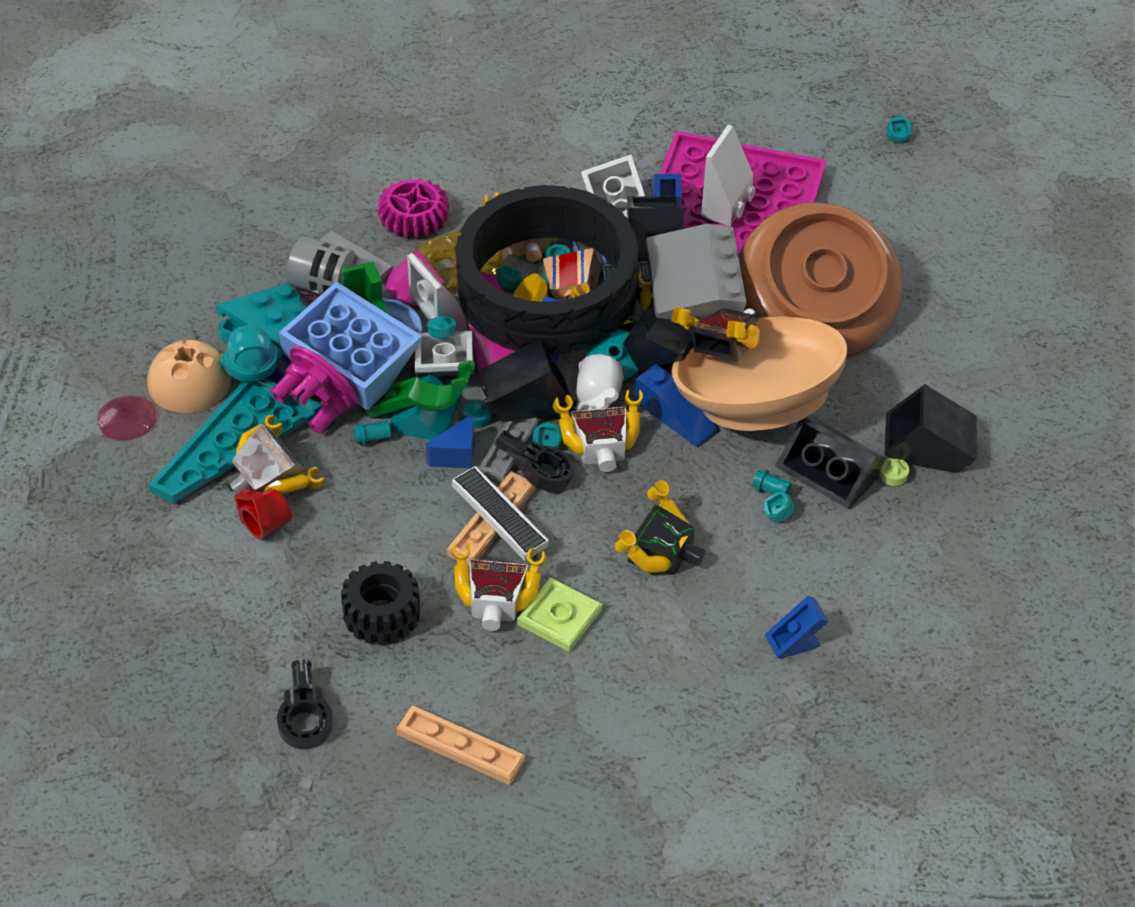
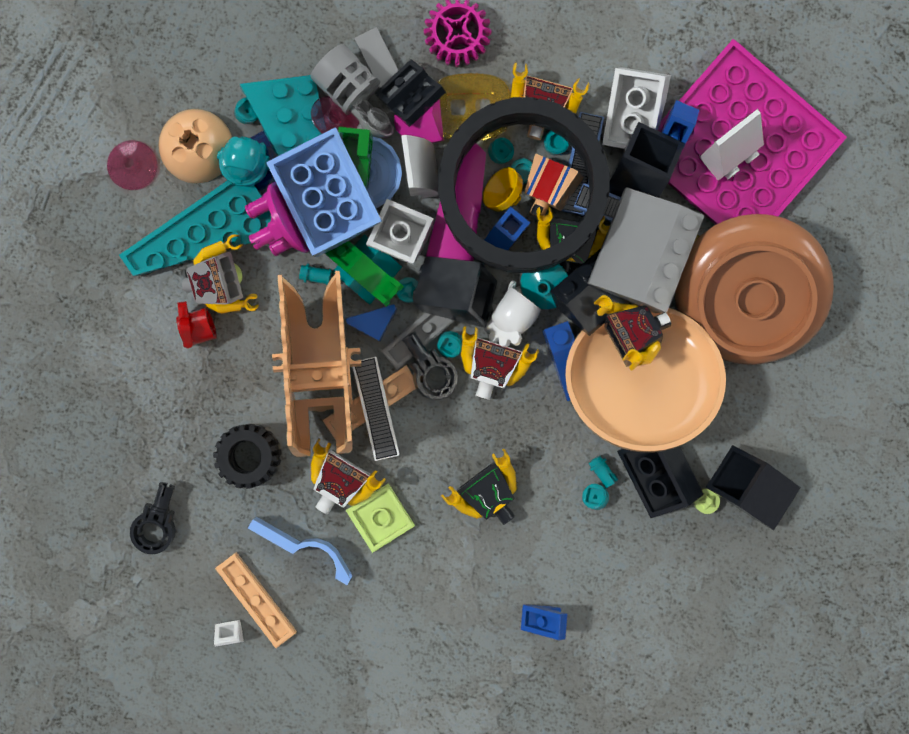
camera: 30 degrees right, 40 degrees up
(391, 255) = (410, 92): none -> black slope
(422, 473) = (314, 362): none -> light nougat animal
(441, 327) = (408, 207): teal tile -> none
(447, 791) = (228, 633): none -> white slope
(475, 668) = (292, 545): none -> light blue piece

